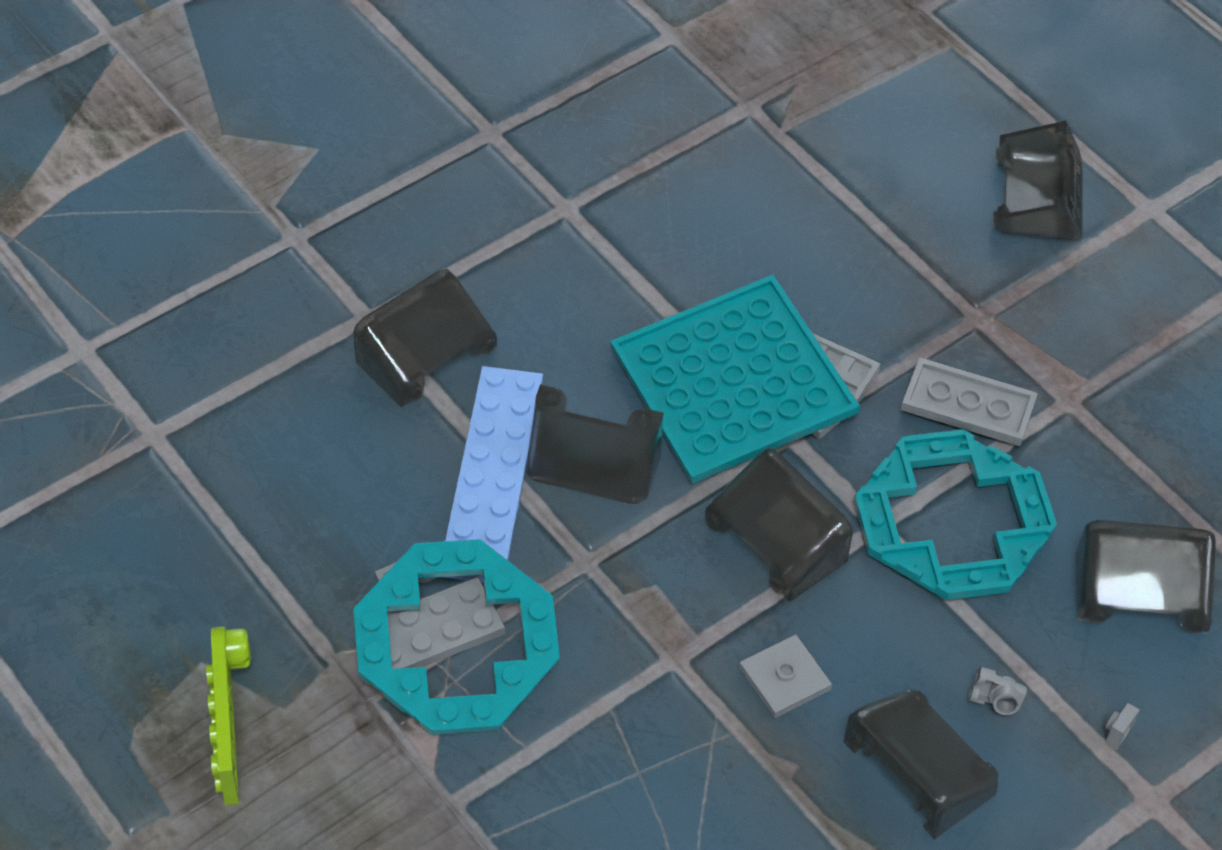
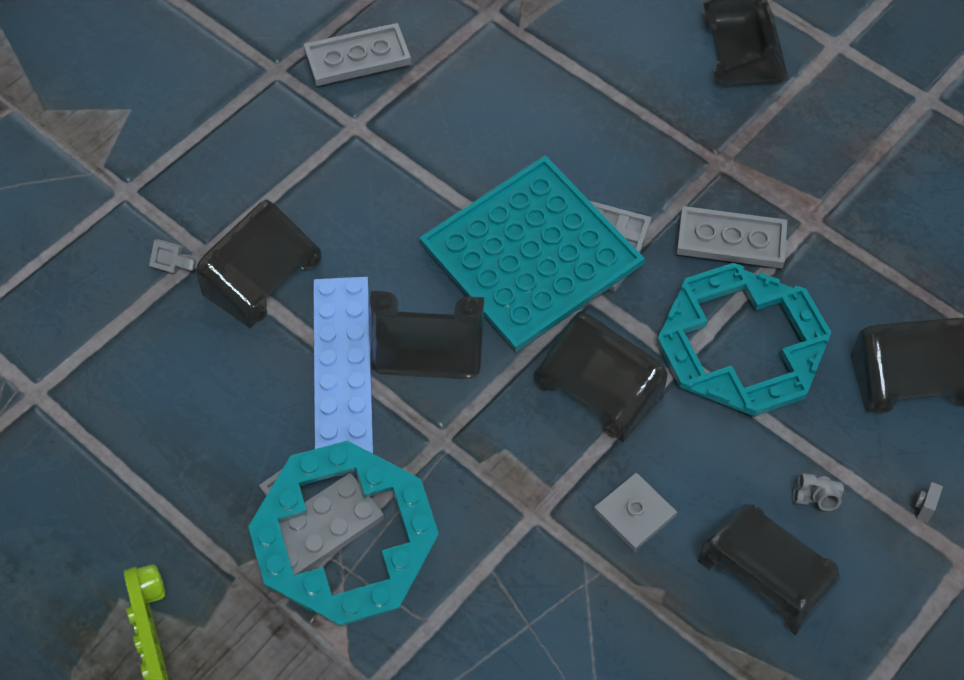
camera: 10 degrees left, 5 degrees up
(328, 315) = (168, 257): none -> light grey plate
(586, 129) = (357, 54): none -> light grey plate

